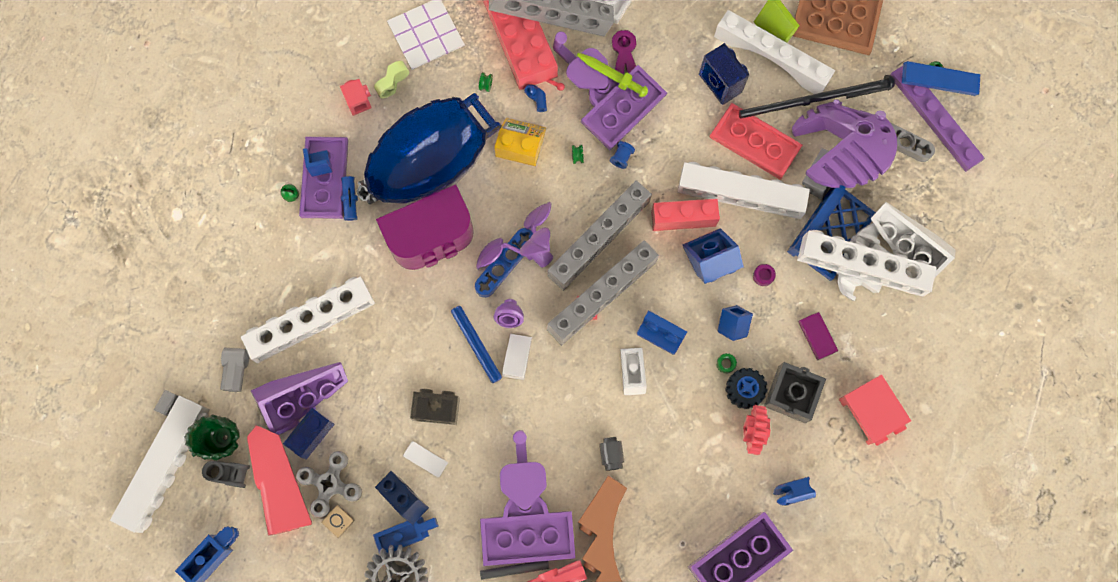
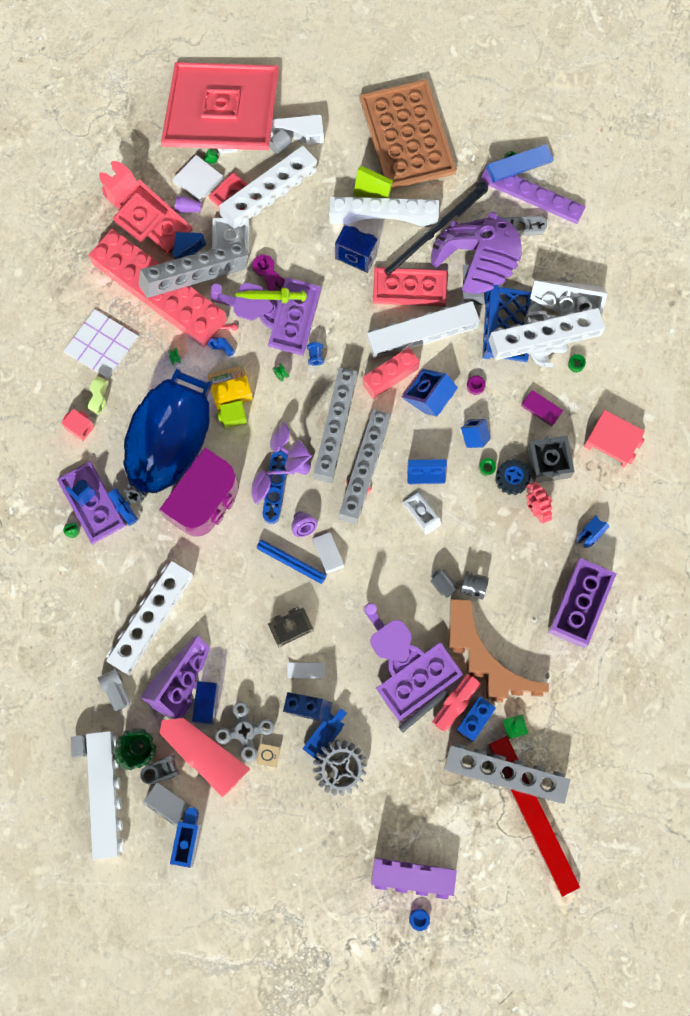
camera: 30 degrees left, 0 degrees up
(211, 509) = (166, 804): none -> light grey hinge
(506, 169) = (232, 414): none -> lime brick
(641, 475) = (474, 585): none -> dark grey piece
(875, 307) = (577, 357): none -> green bush

